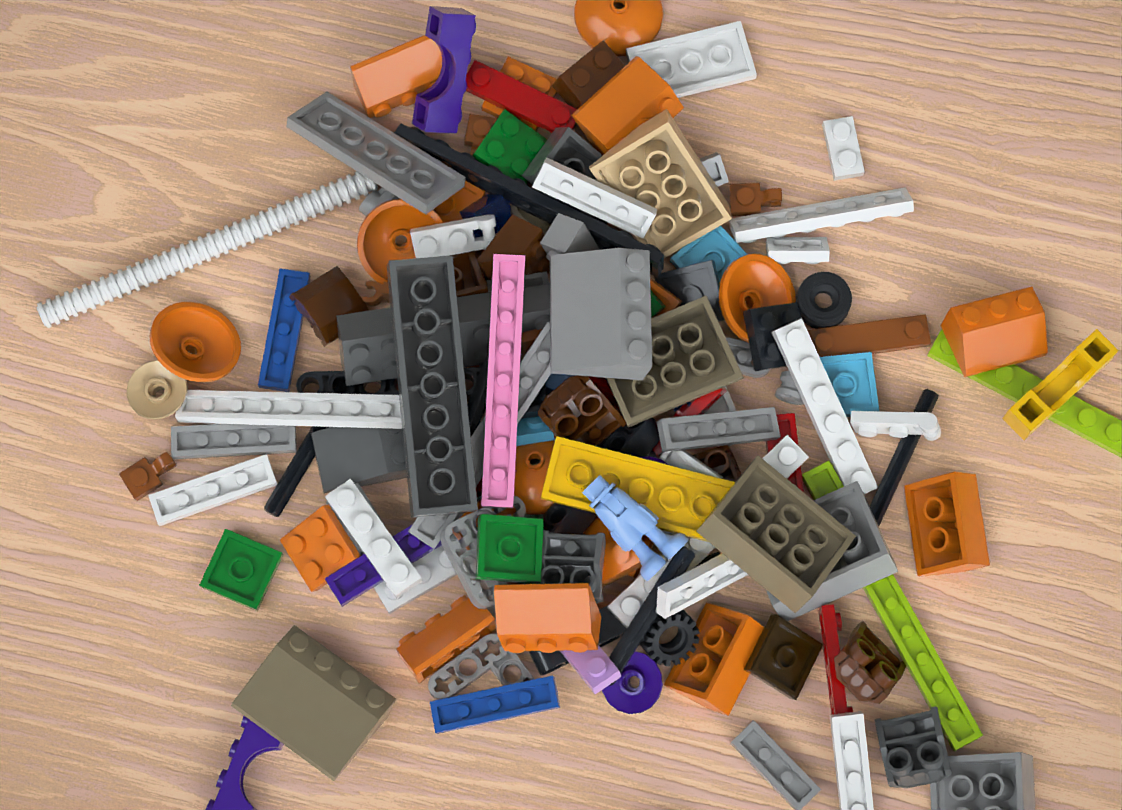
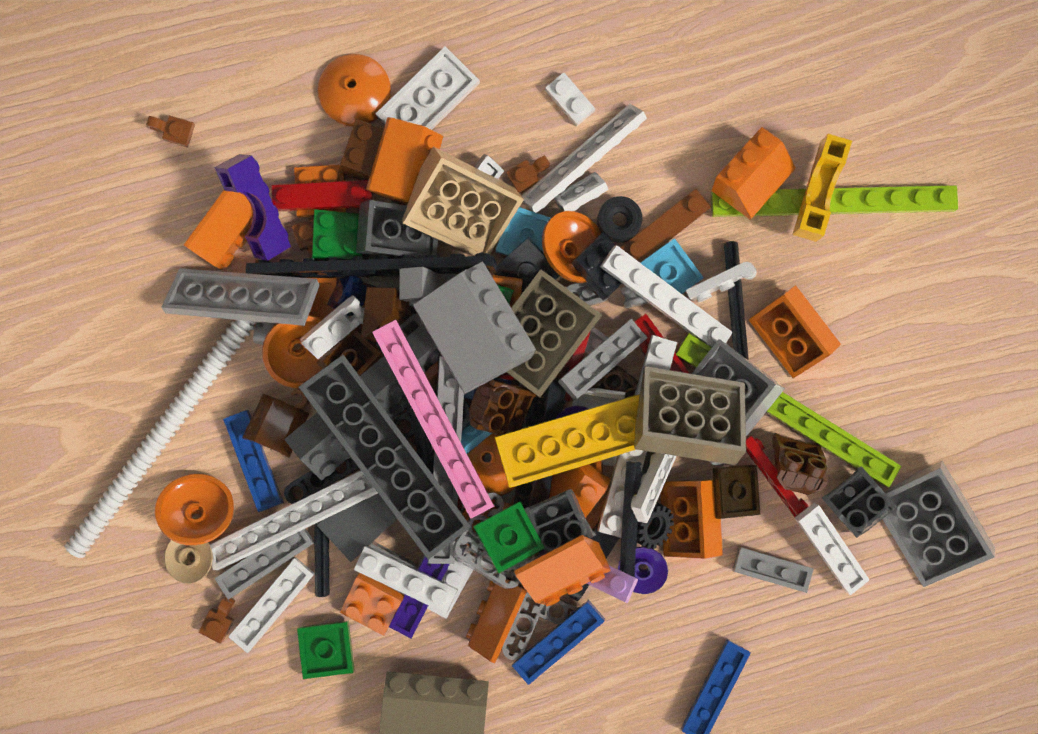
camera: 30 degrees left, 10 degrees up
(594, 198) = (418, 242): white plate -> none
(631, 521) = (584, 470): light blue piece -> none

